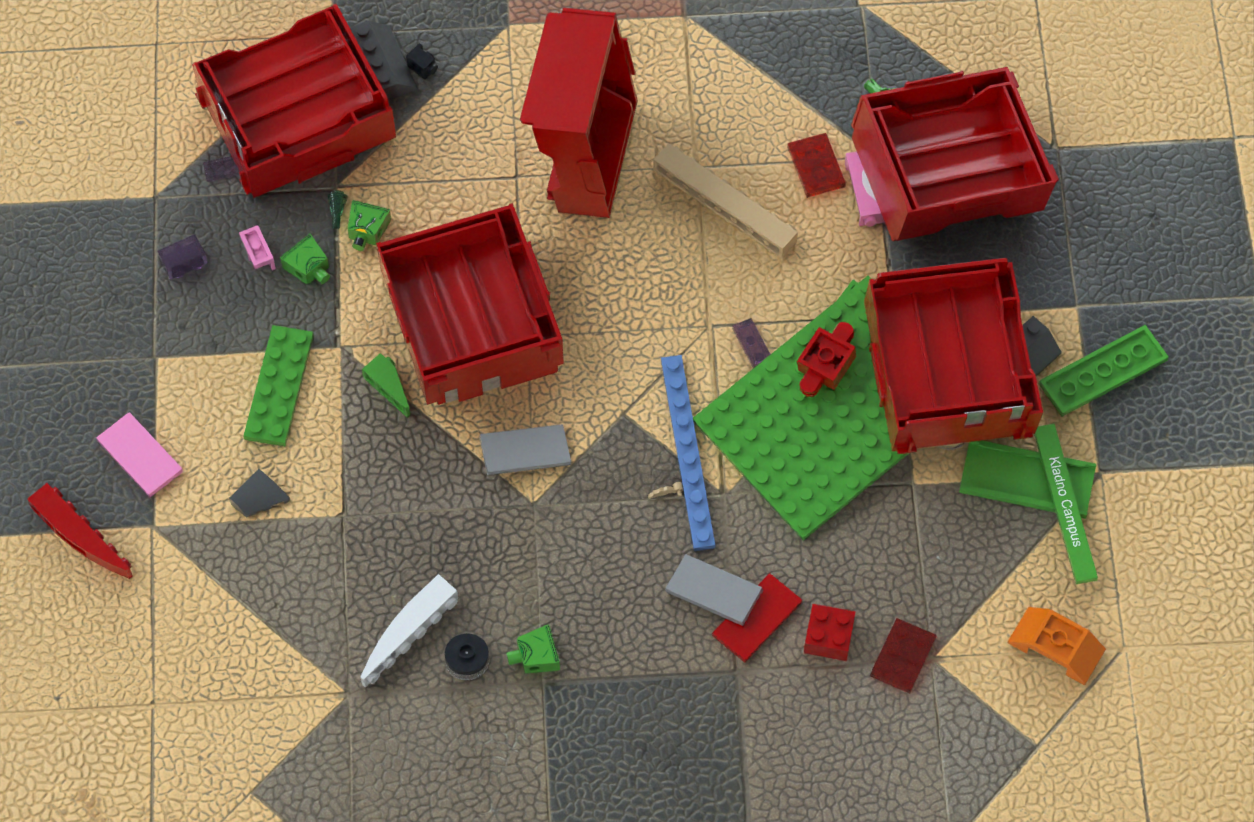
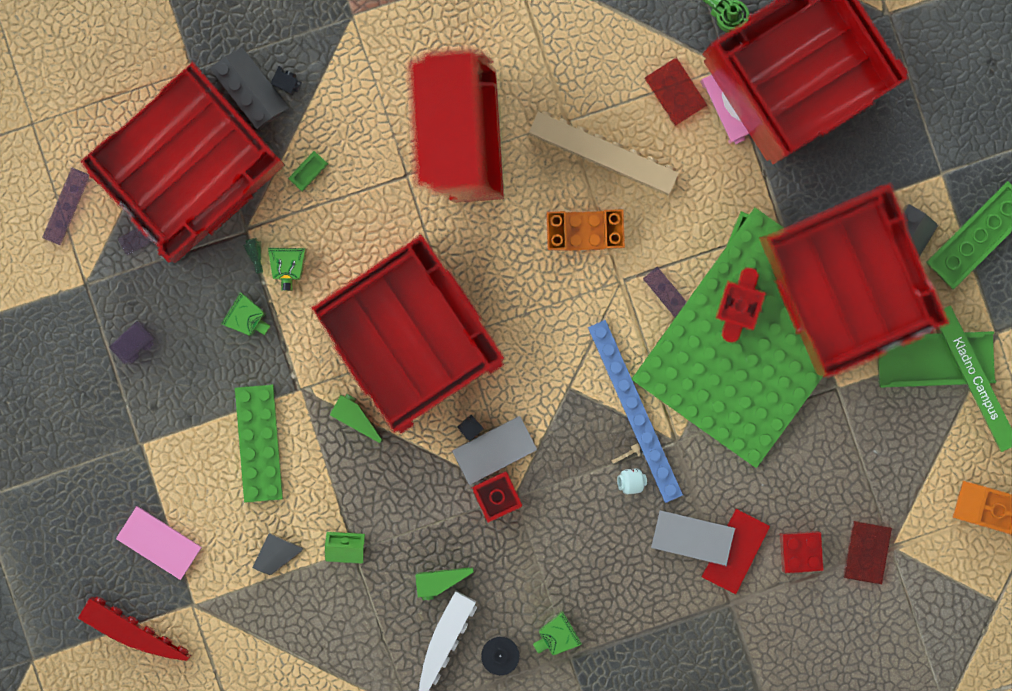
camera: 20 degrees left, 25 degrees up
(162, 121) = (66, 206): none -> clear purple tile
(257, 248) = (197, 318): bright pink panel -> none
(333, 507) = (344, 547): none -> bright green panel
(417, 148) = (308, 171): none -> bright green tile
(424, 564) = (435, 582): none -> bright green slope
(506, 417) = (470, 427): none -> black brick
(513, 492) = (497, 496): none -> red brick
(663, 516) = (631, 481): none -> light aqua head
(682, 266) = (585, 230): none -> orange slope

